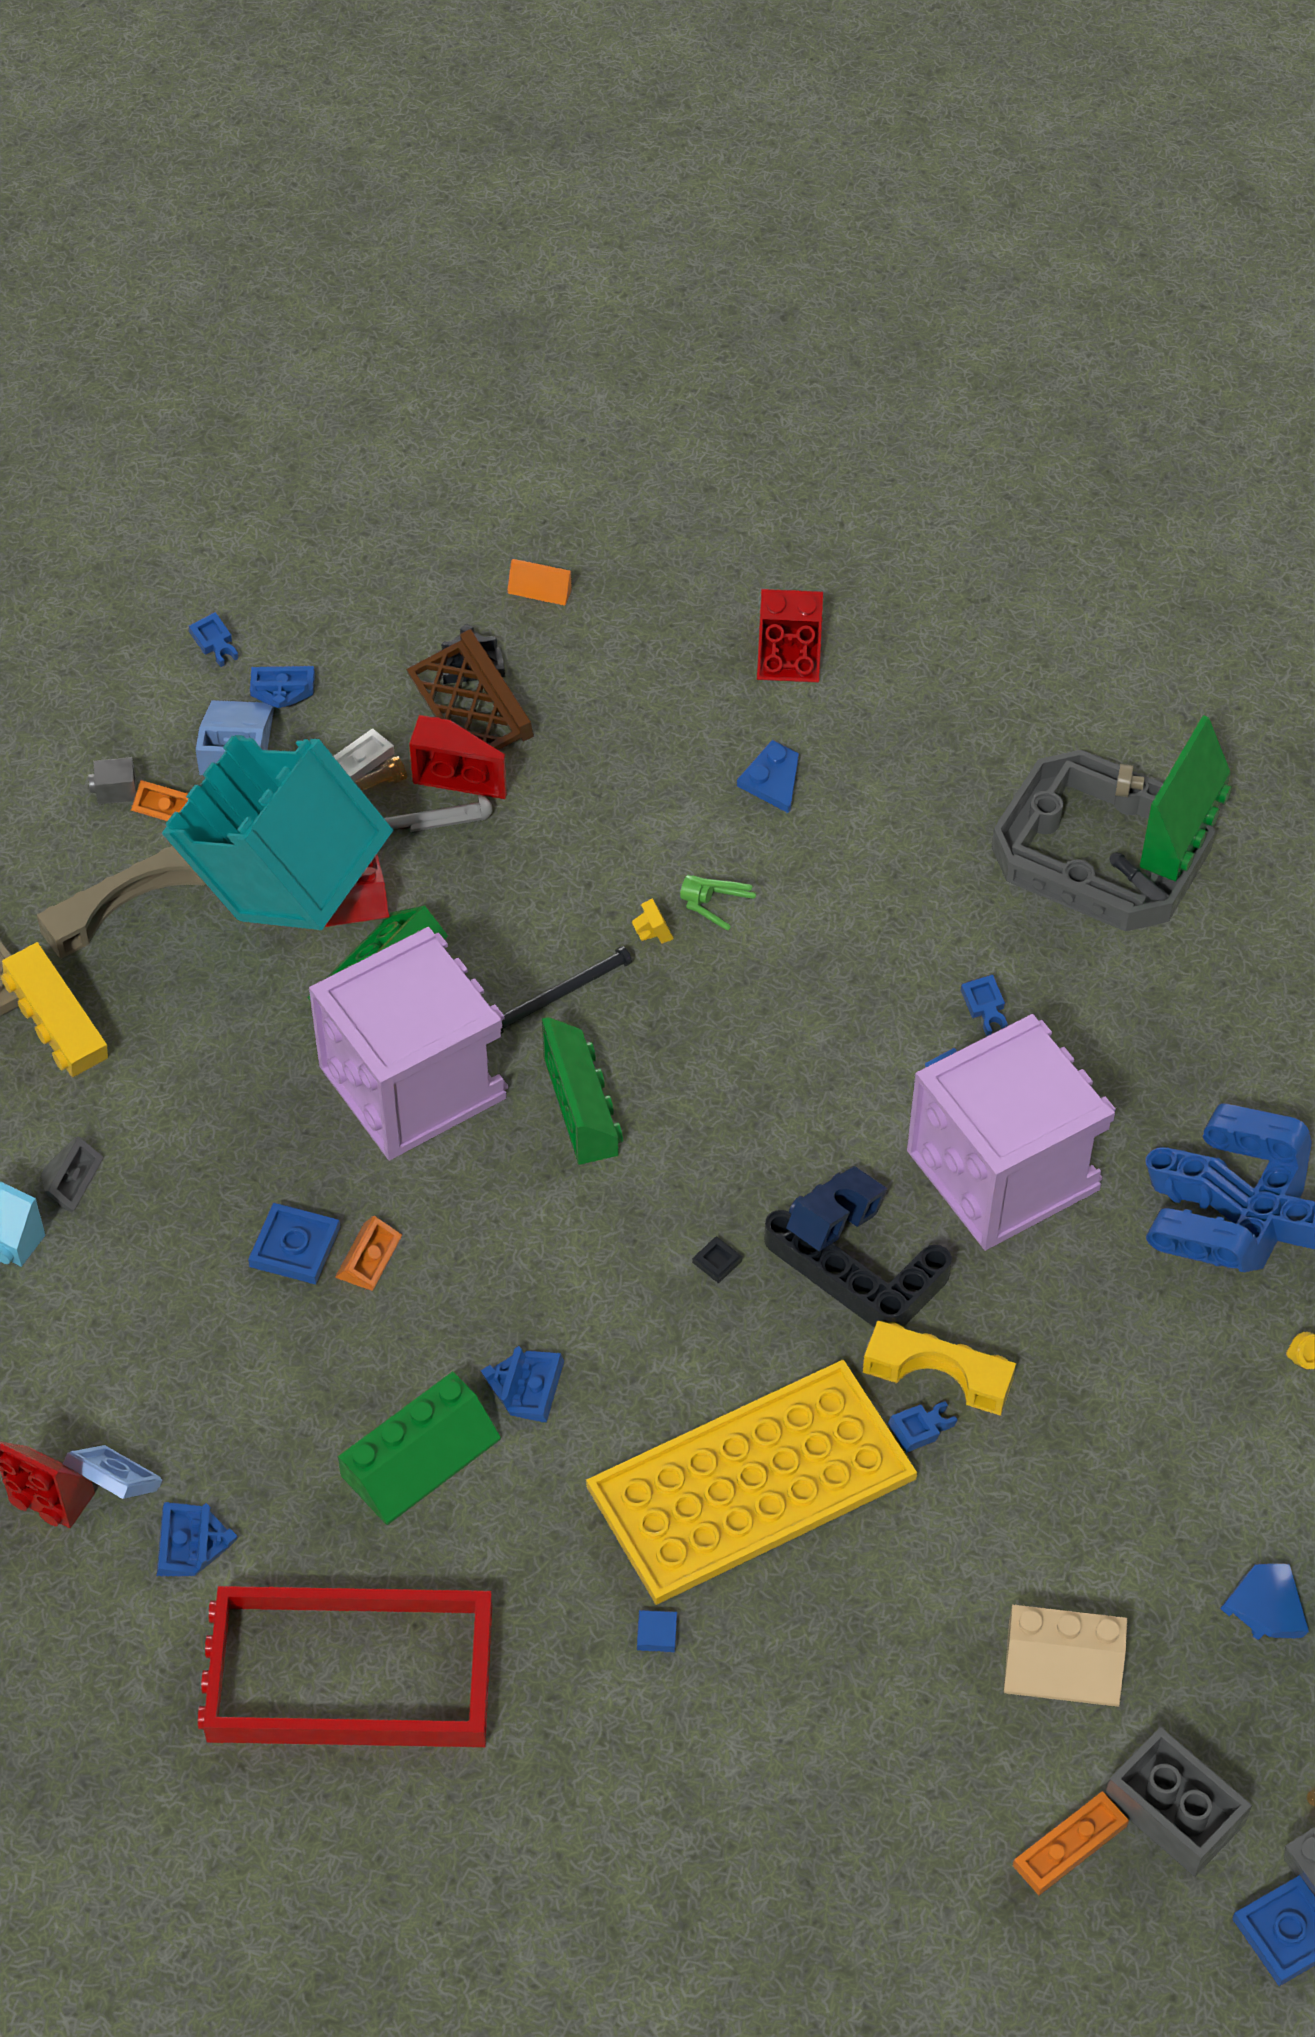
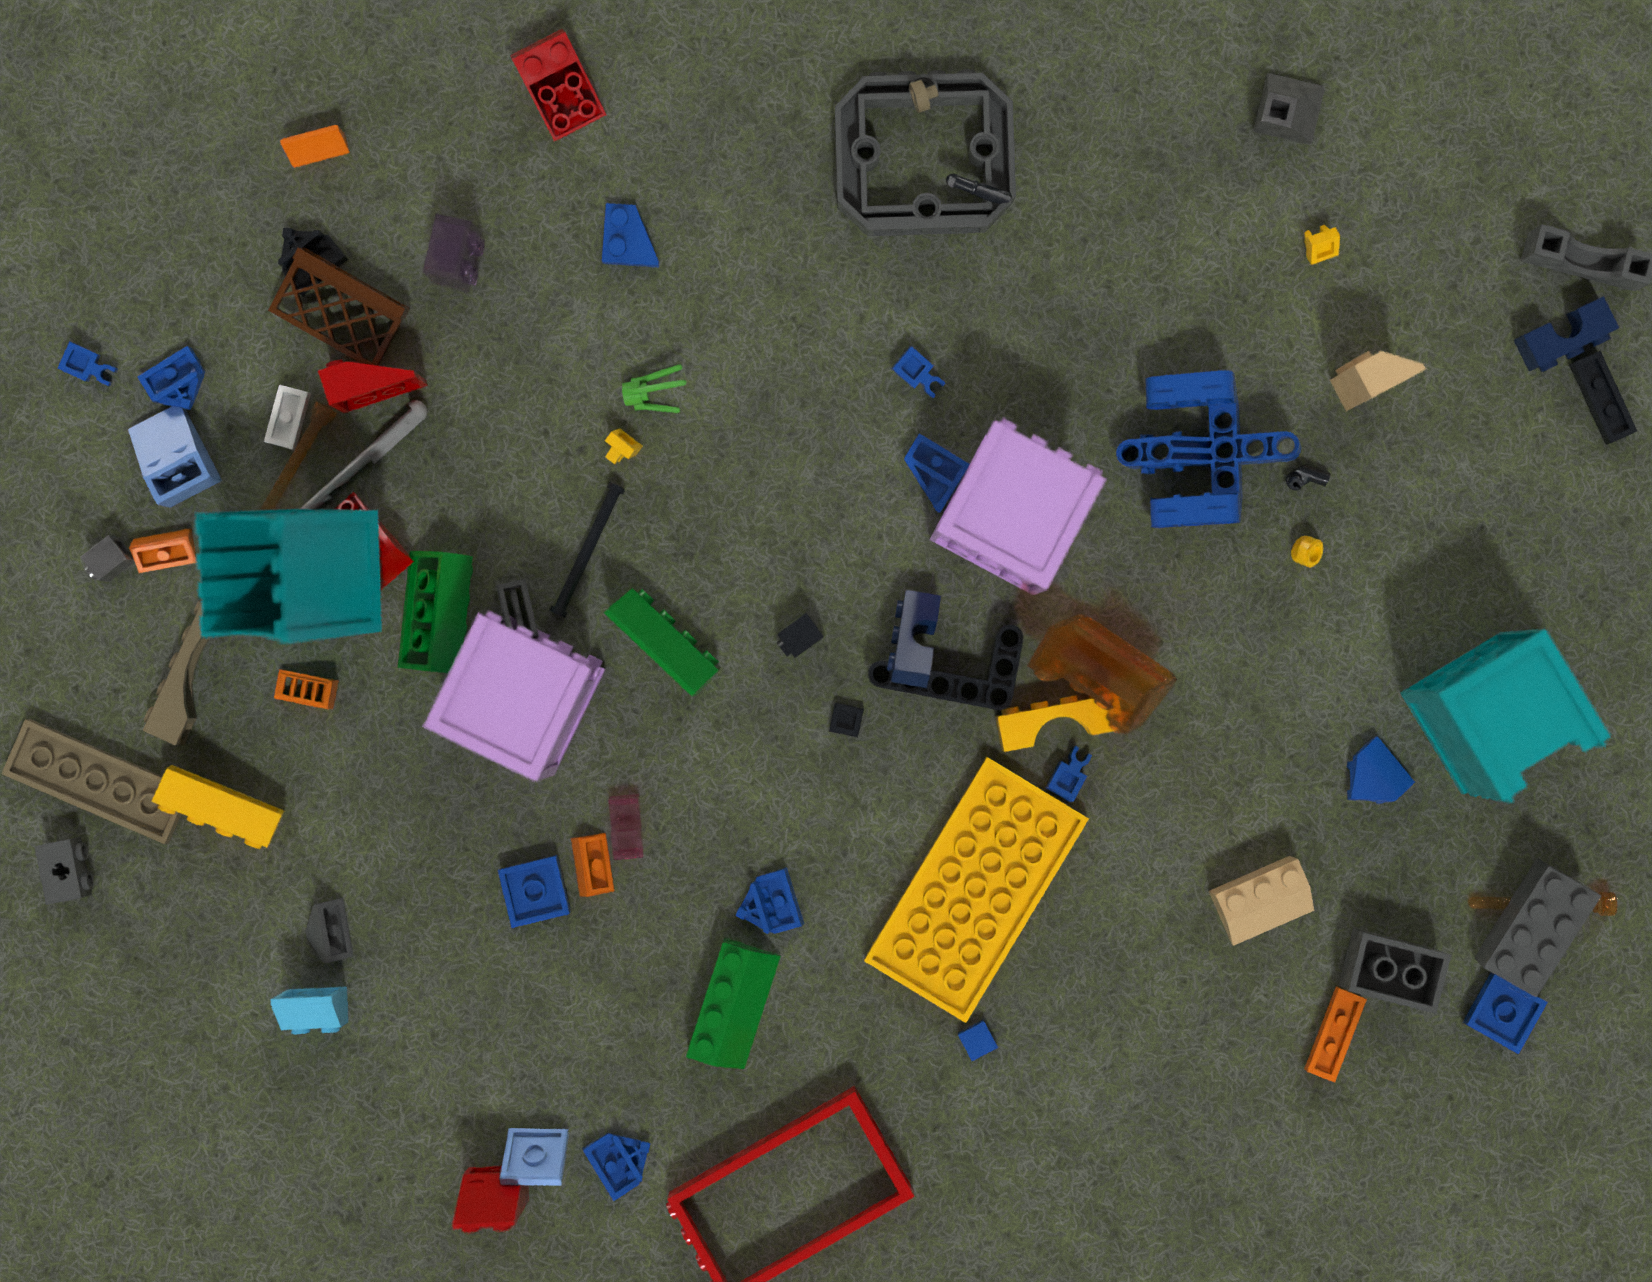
camera: 30 degrees left, 35 degrees up
(218, 987) = (328, 695): none -> orange slope
(427, 1238) = (626, 827): none -> clear pink slope
(604, 703) = (453, 253): none -> clear purple brick
(719, 1158) = (799, 636): none -> black brick
(1009, 1319) = (1104, 669): none -> clear orange windscreen
(1186, 804) = (989, 103): green slope -> none

